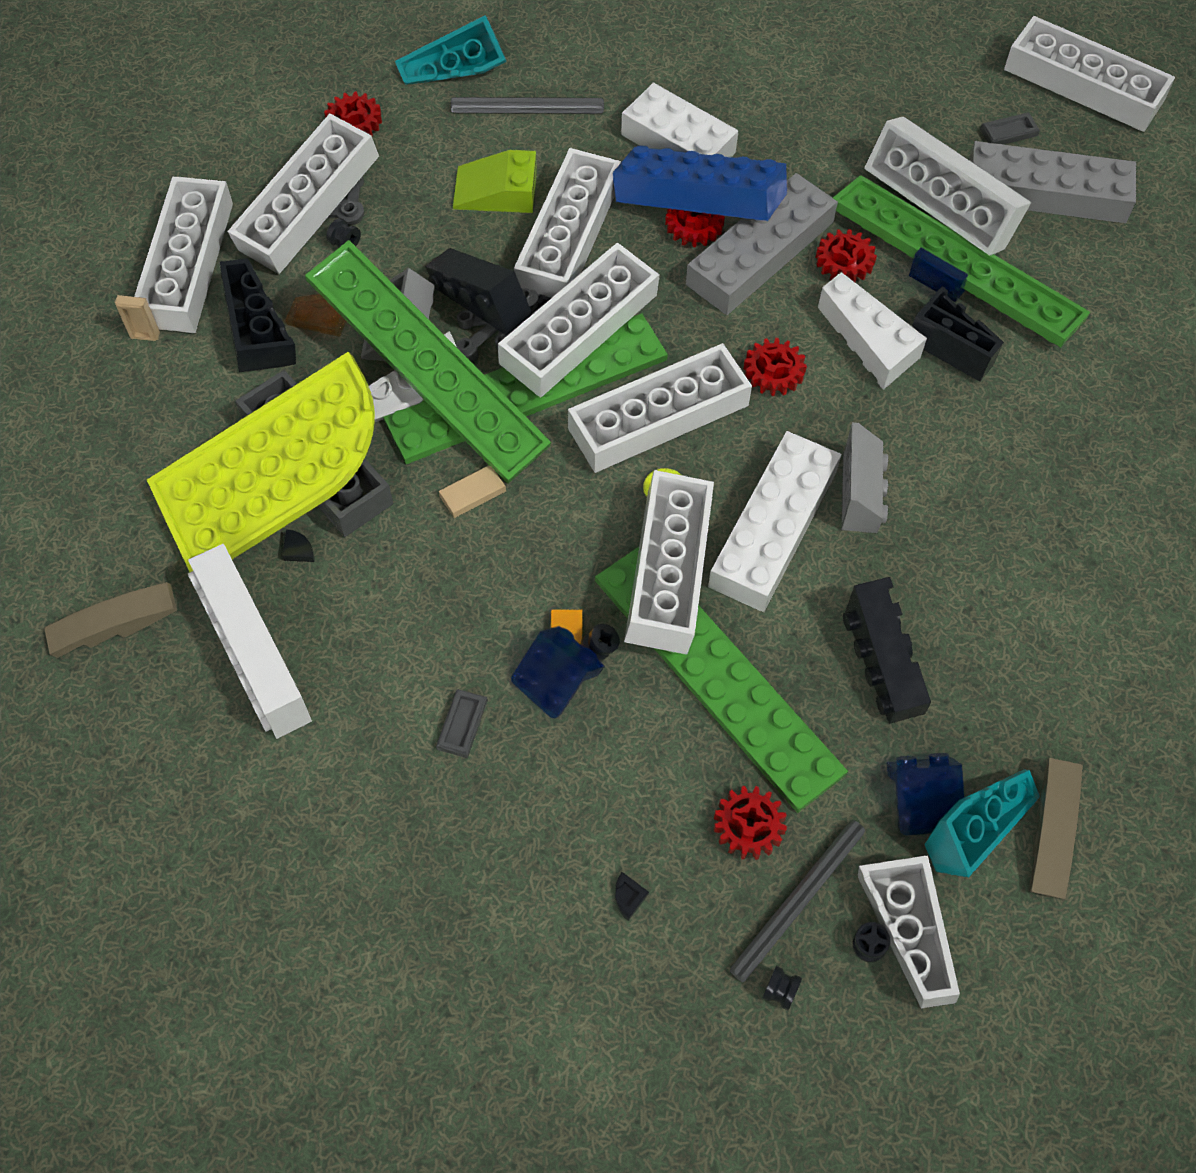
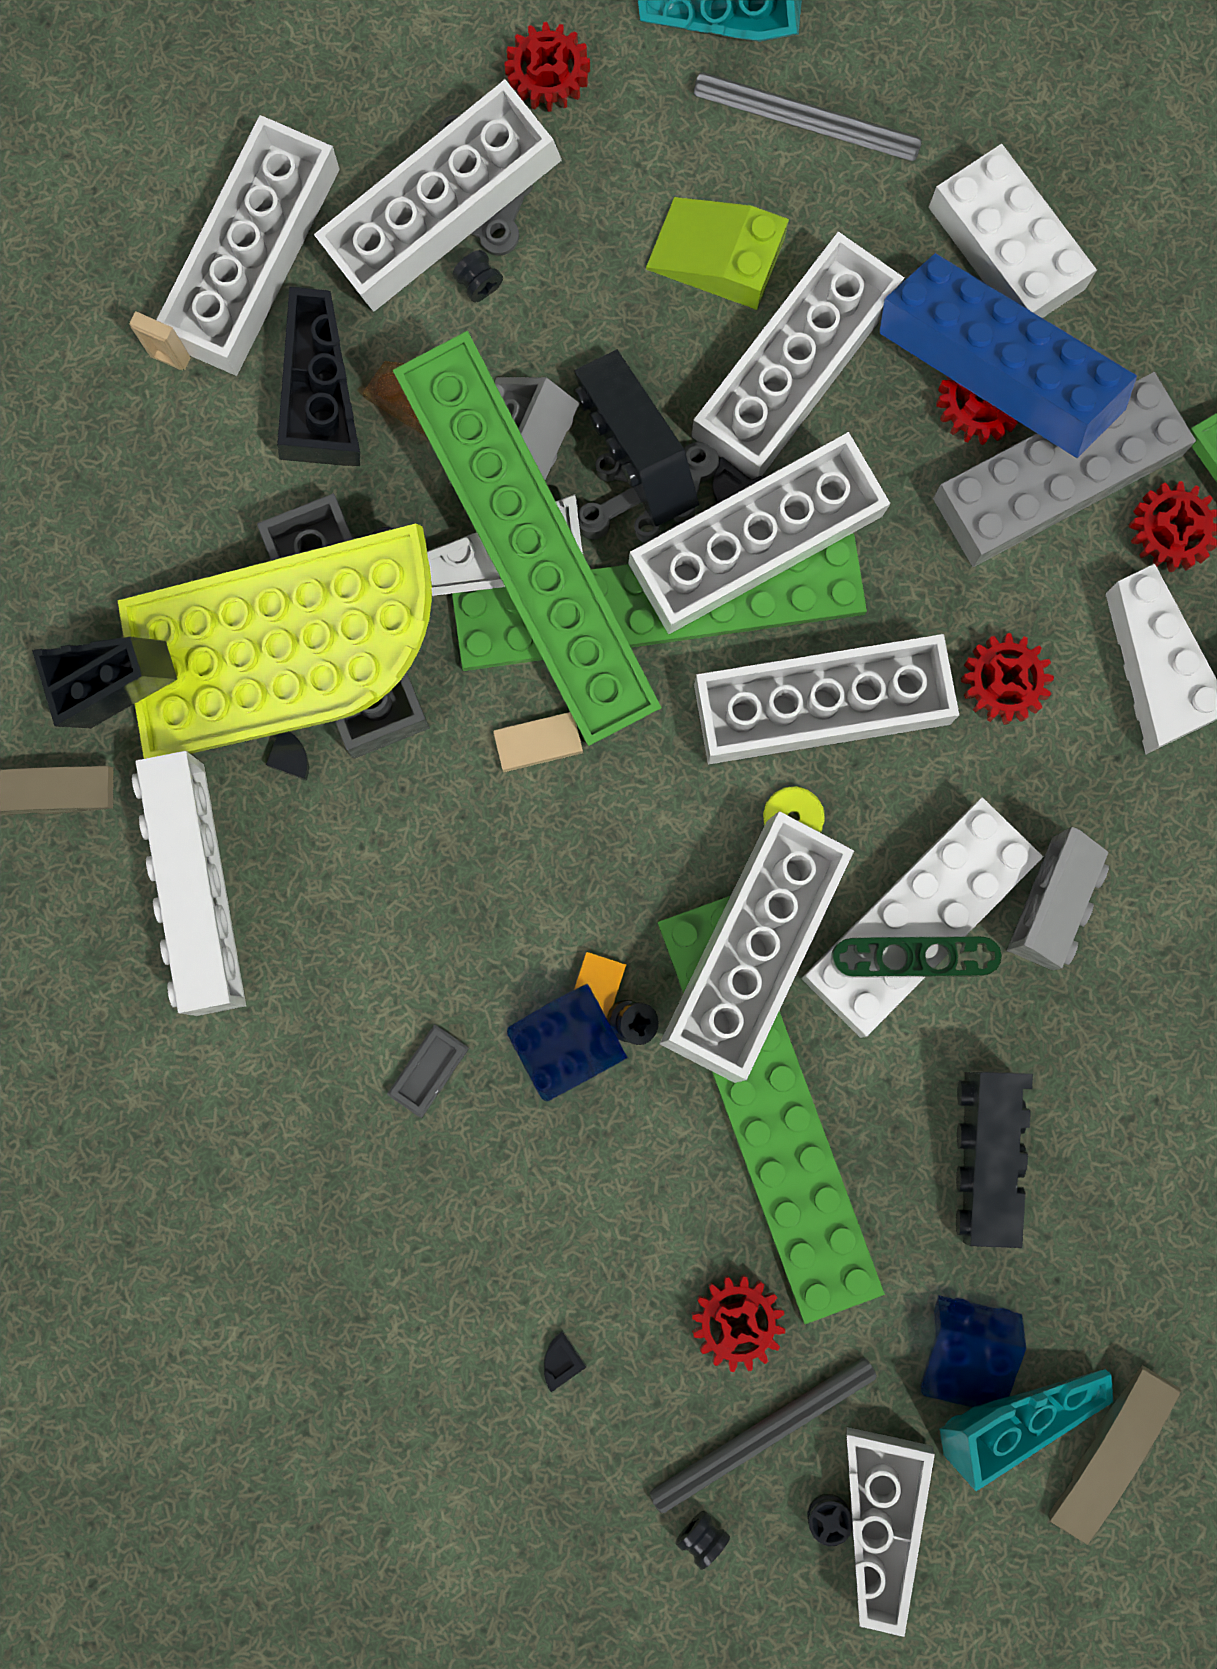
camera: 20 degrees right, 20 degrees up
(149, 524) = (101, 678): none -> black wedge
(783, 536) = (915, 952): none -> dark green beam

